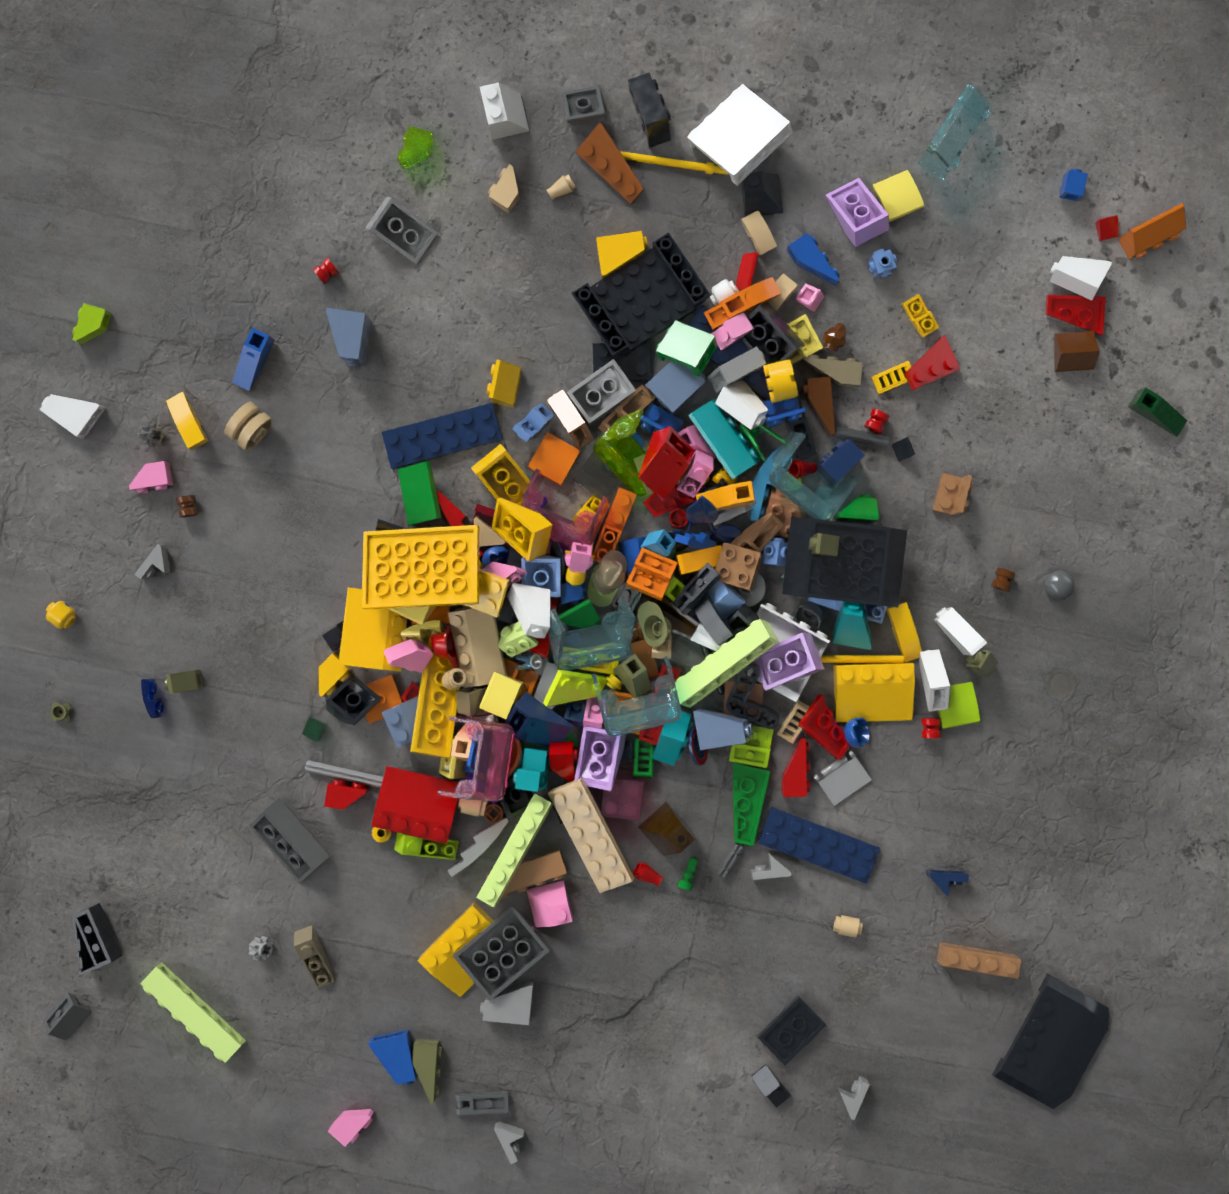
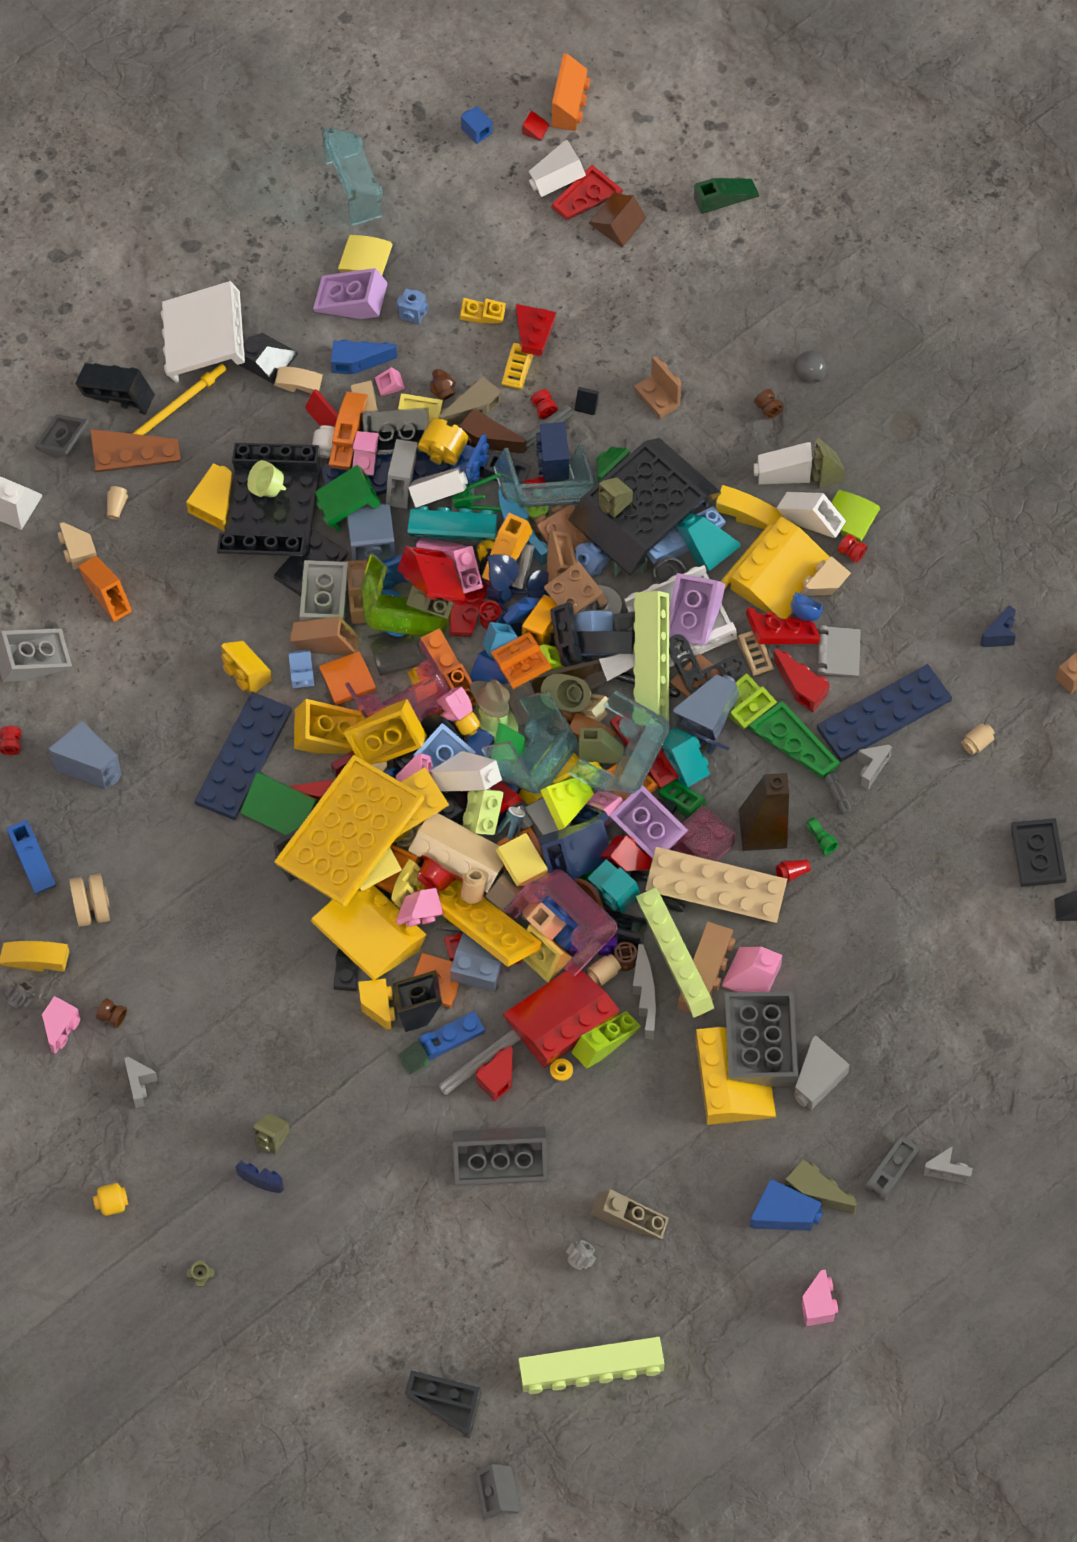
camera: 55 degrees left, 25 degrees down
(350, 741) = (452, 1035): none -> blue plate
(488, 236) = (105, 588): none -> orange slope
(653, 280) = (265, 480): none -> yellowish green piece
(890, 729) = (826, 580): none -> tan slope

